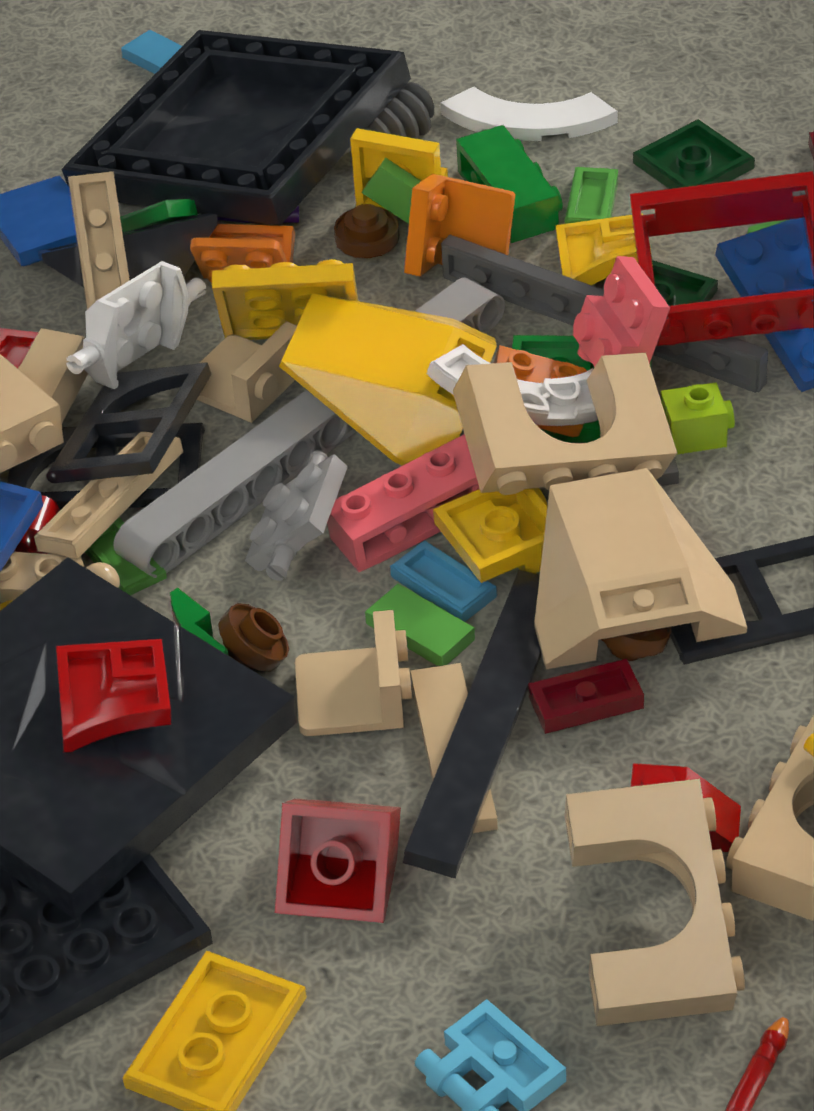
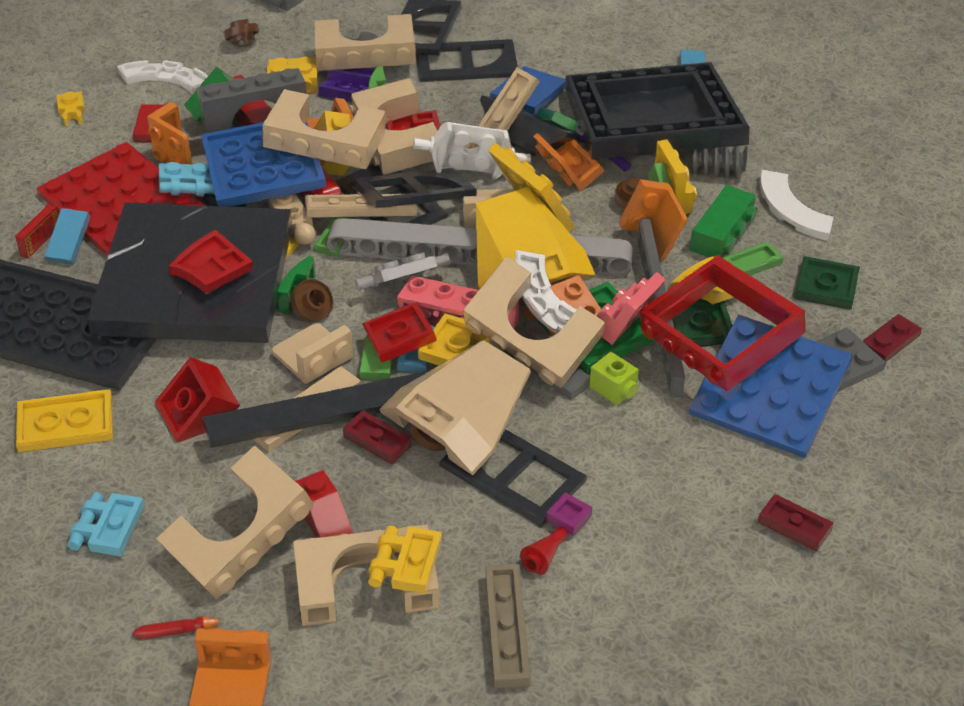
camera: 50 degrees right, 0 degrees up
(422, 572) = (399, 332): none -> red tile

